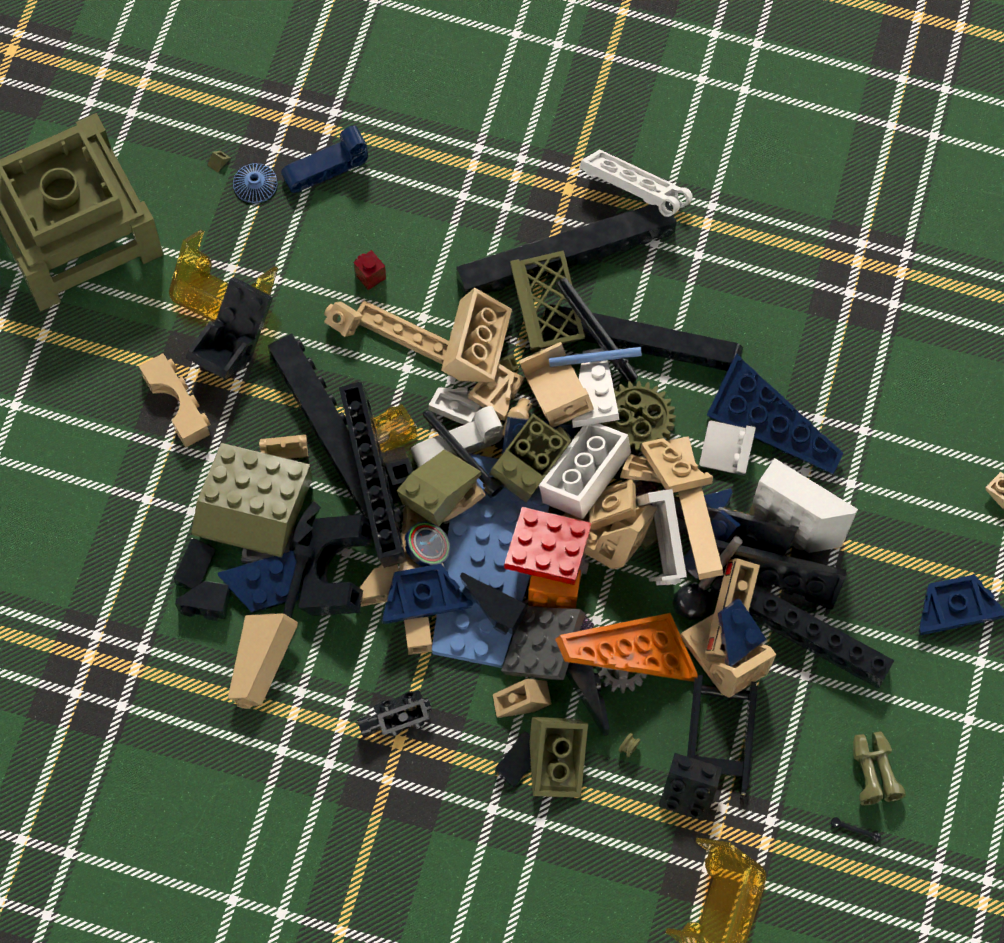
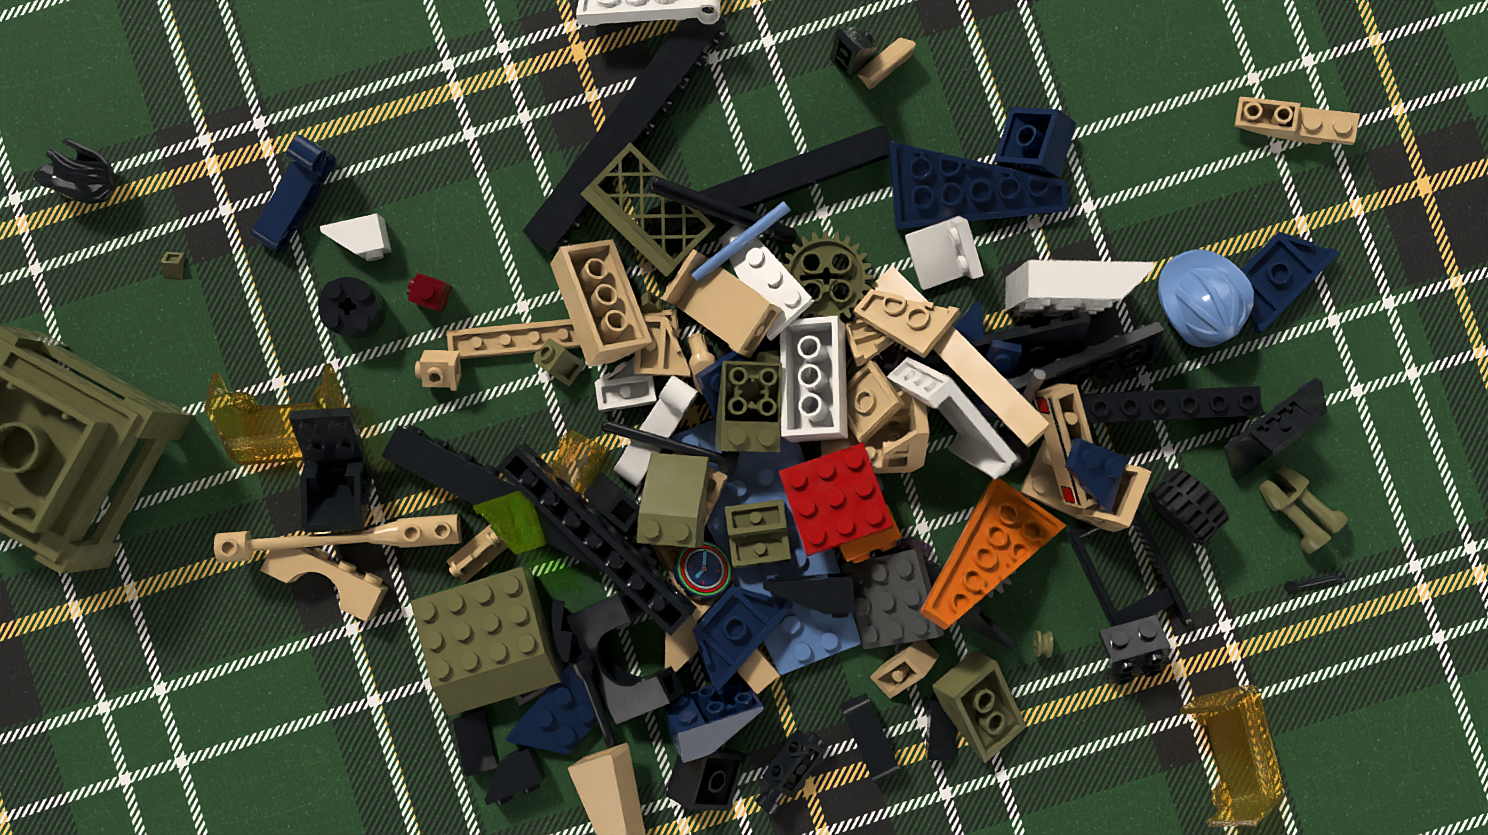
camera: 30 degrees left, 20 degrees up
(202, 75) = (84, 180): none -> black hair
(249, 404) = (400, 533): none -> tan bar
(258, 190) = (245, 268): dish -> none
(313, 248) = (335, 304): none -> black brick
(325, 433) = (514, 520): none -> clear neon green wing
(334, 683) = (707, 781): none -> black slope
(350, 211) = (361, 235): none -> white slope
(359, 639) = (709, 717): none -> dark blue slope
(423, 362) = (559, 362): none -> olive bracket
(465, 731) = (869, 737): none -> black beam
(480, 546) = (757, 534): none -> olive slope
(749, 286) = (852, 50): none -> black slope
(769, 313) = (886, 62): none -> tan slope
(791, 708) = (1188, 506): none -> black tyre
(840, 417) = (1035, 141): none -> dark blue slope
(889, 700) = (1276, 429): none -> black bracket
(892, 587) = (1205, 297): none -> medium blue piece

